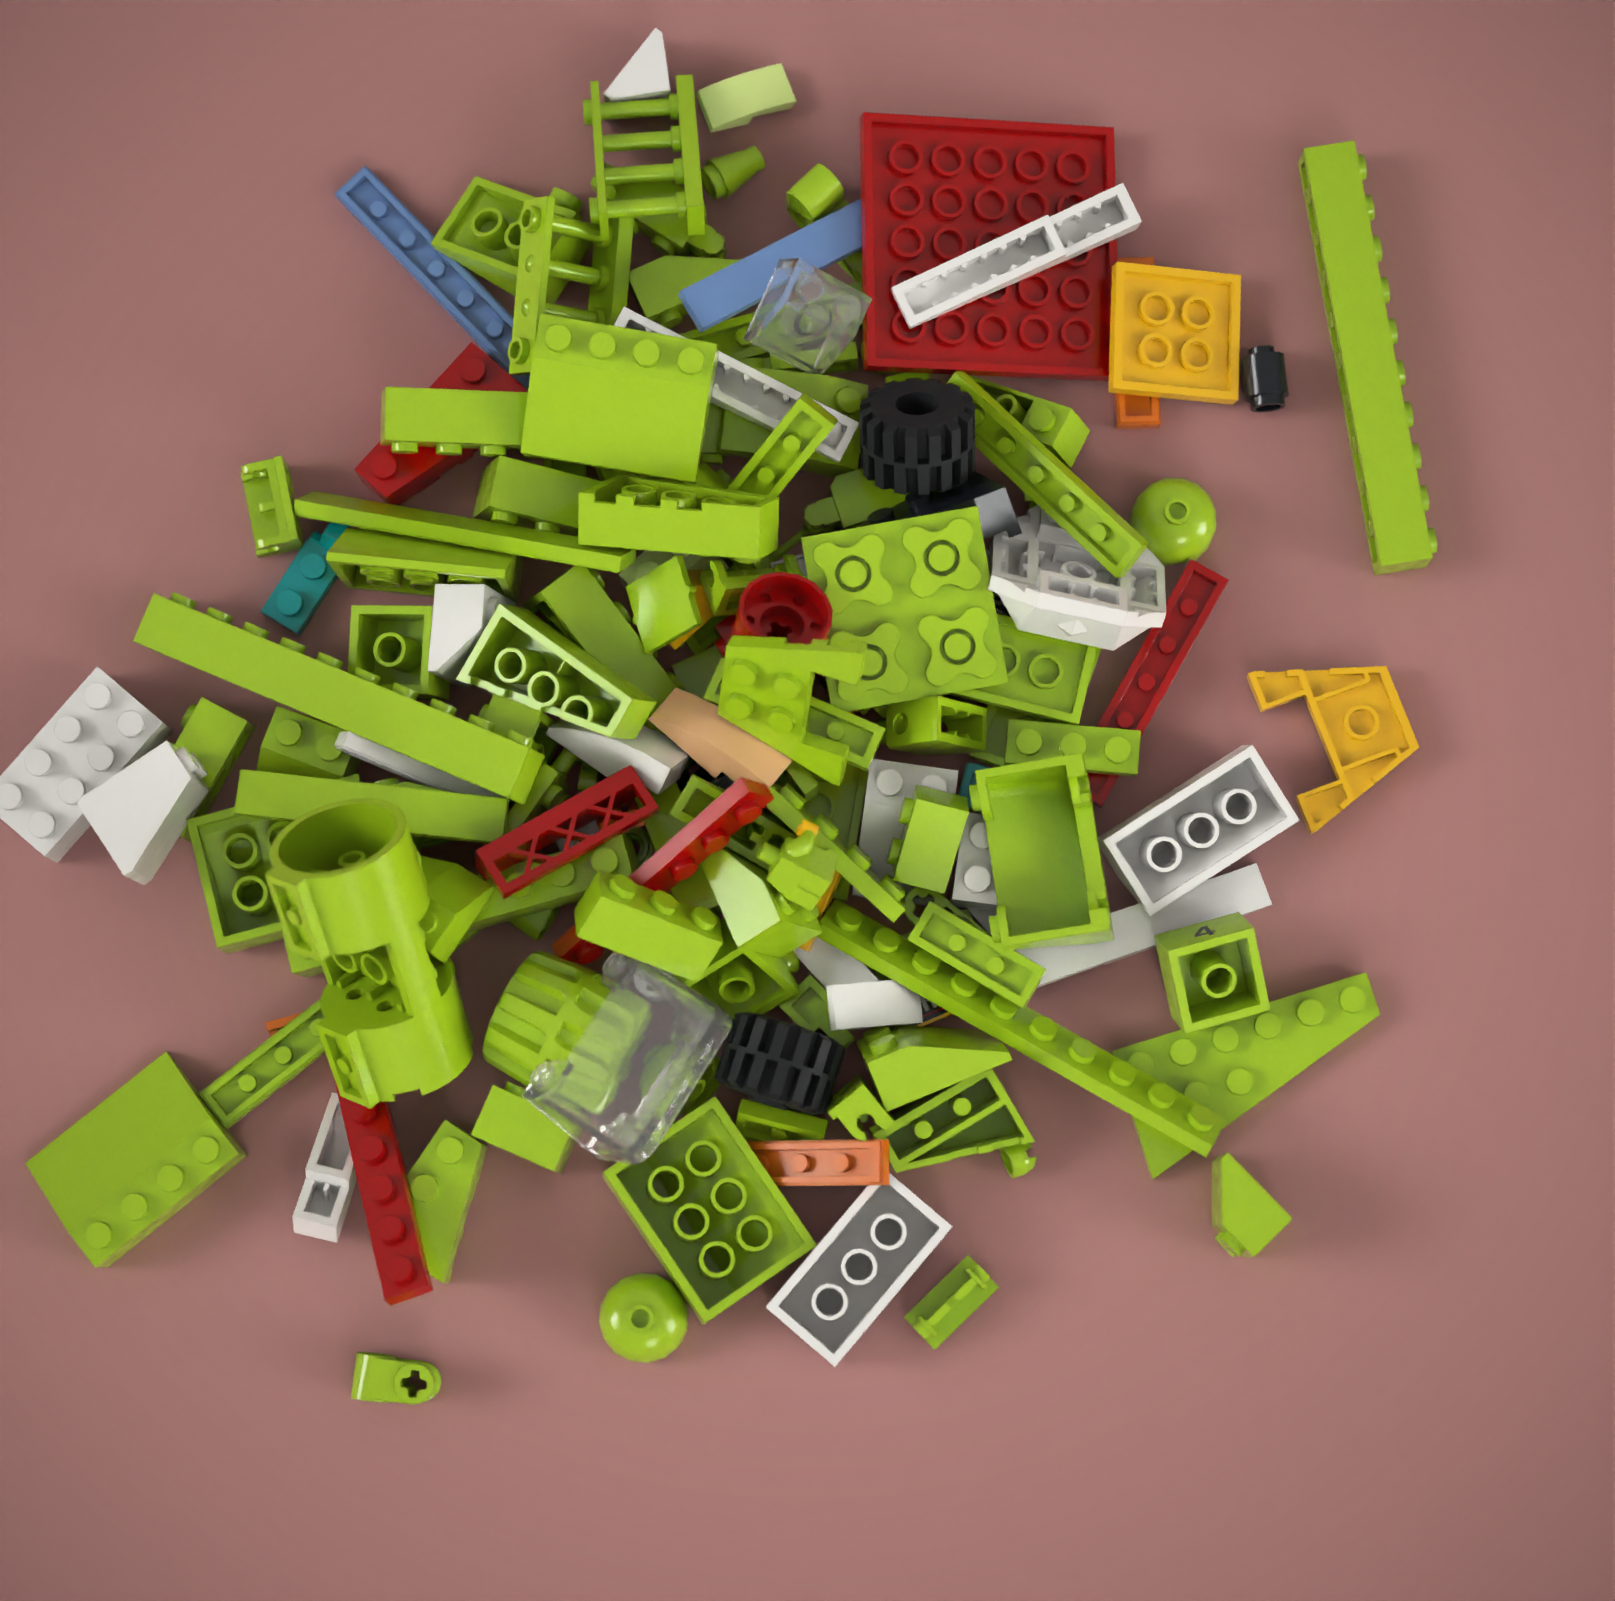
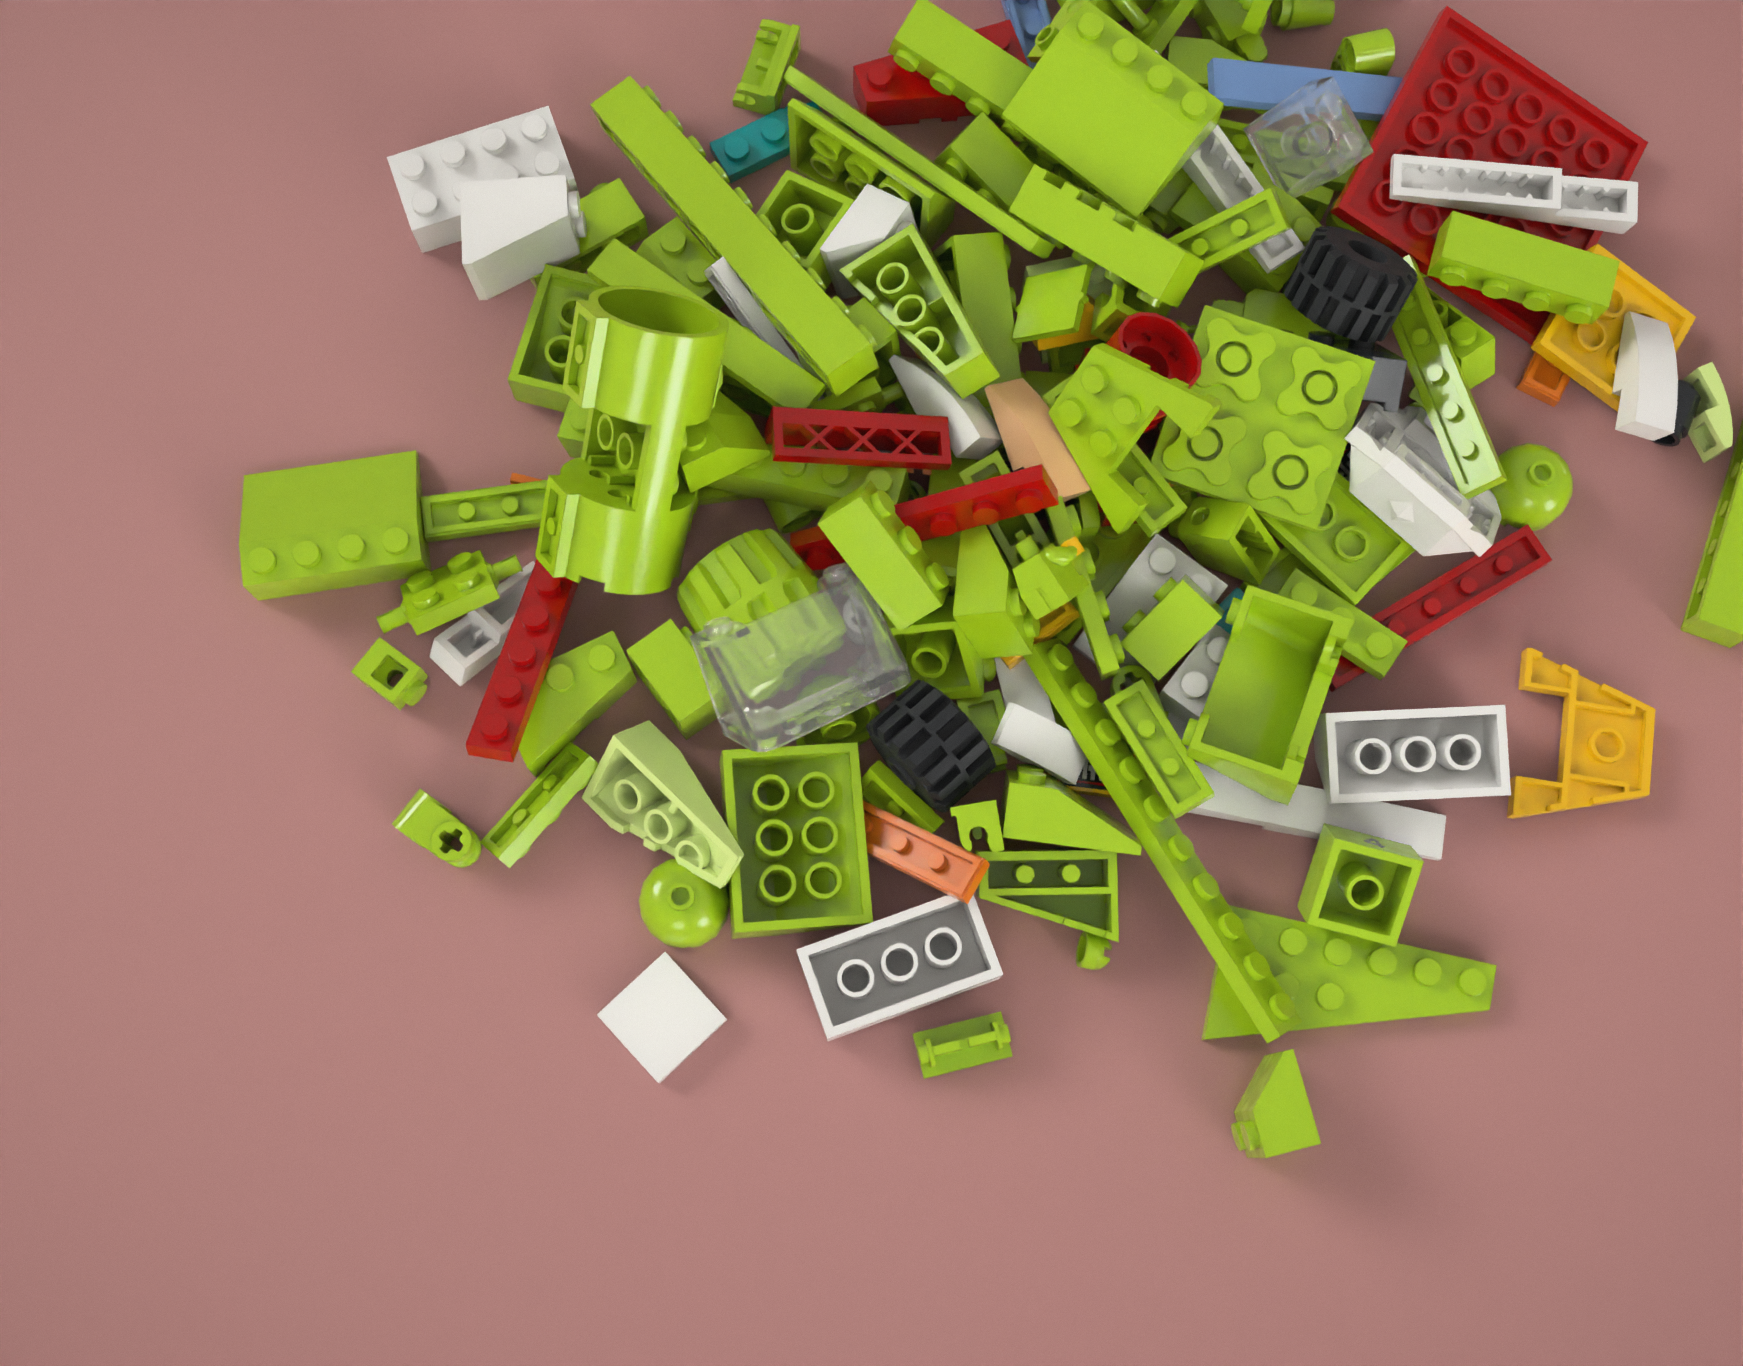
camera: 20 degrees right, 5 degrees down
(255, 1264) = (383, 663): none -> lime brick
(278, 1166) = (448, 591): none -> lime plate
(469, 1306) = (540, 804): none -> lime plate
(563, 1240) = (654, 794): none -> yellowish green wedge
(682, 1427) = (662, 1017): none -> white tile
(1062, 331) = (1523, 268): none -> lime brick
(1223, 365) = (1646, 378): none -> white slope
(1306, 371) = (1712, 426): none -> yellowish green slope

